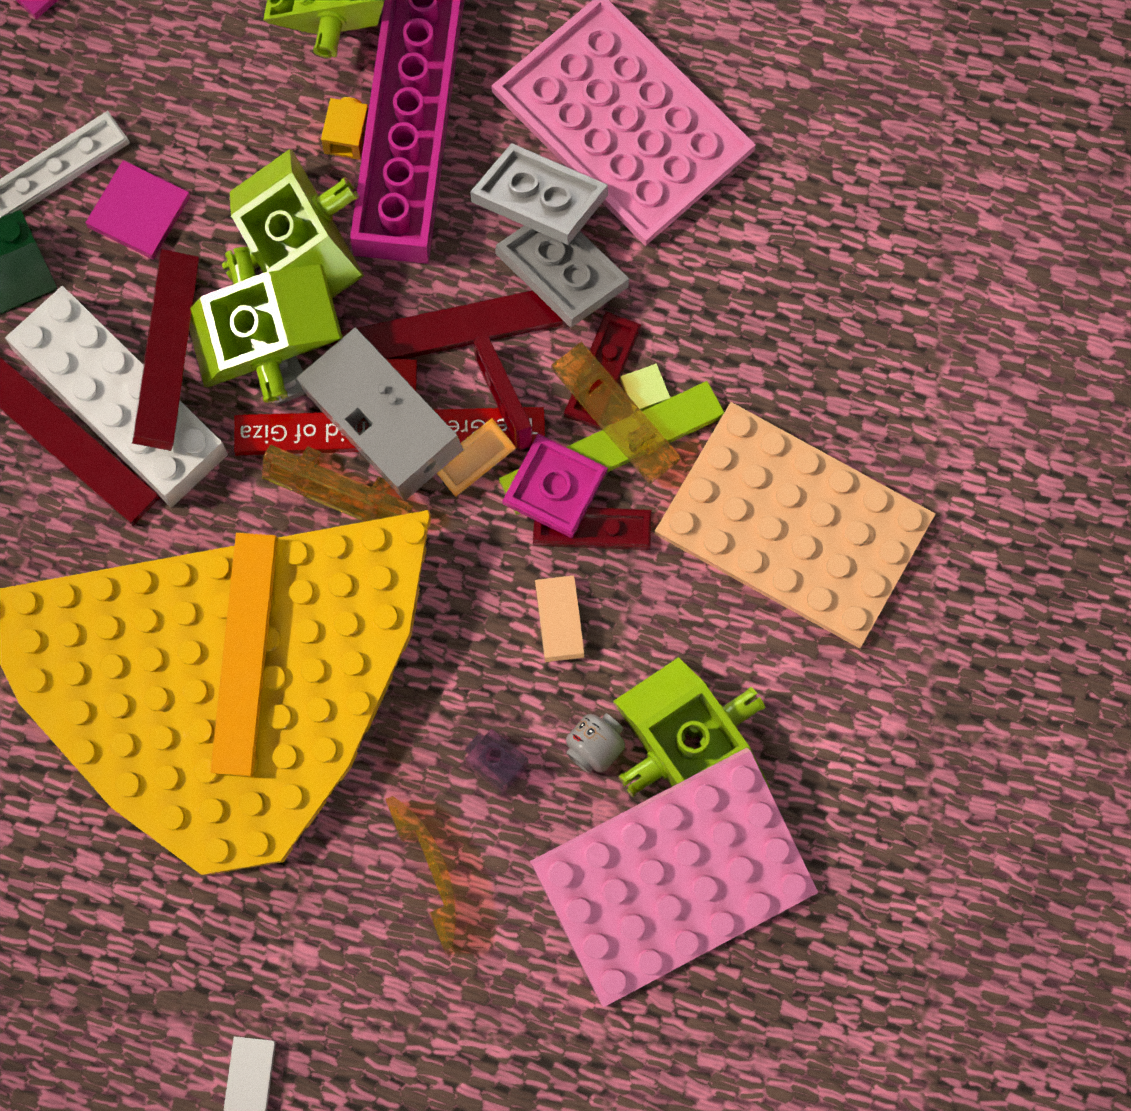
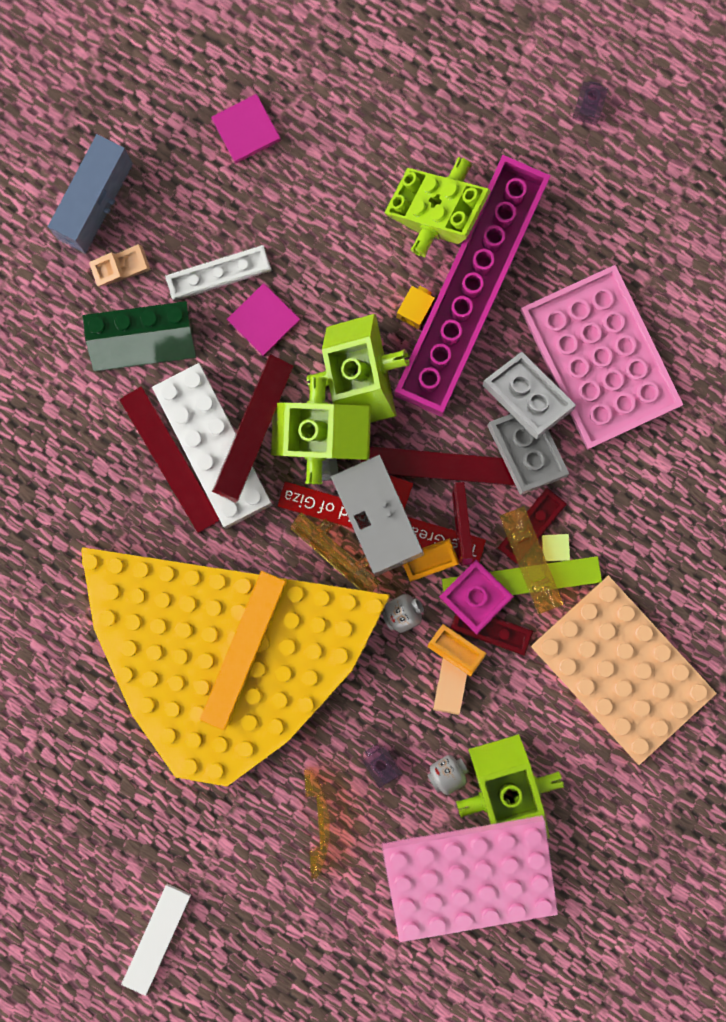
camera: 25 degrees right, 10 degrees up
(459, 540) = (403, 613): none -> light grey head
(551, 568) = (456, 650): none -> light orange tile

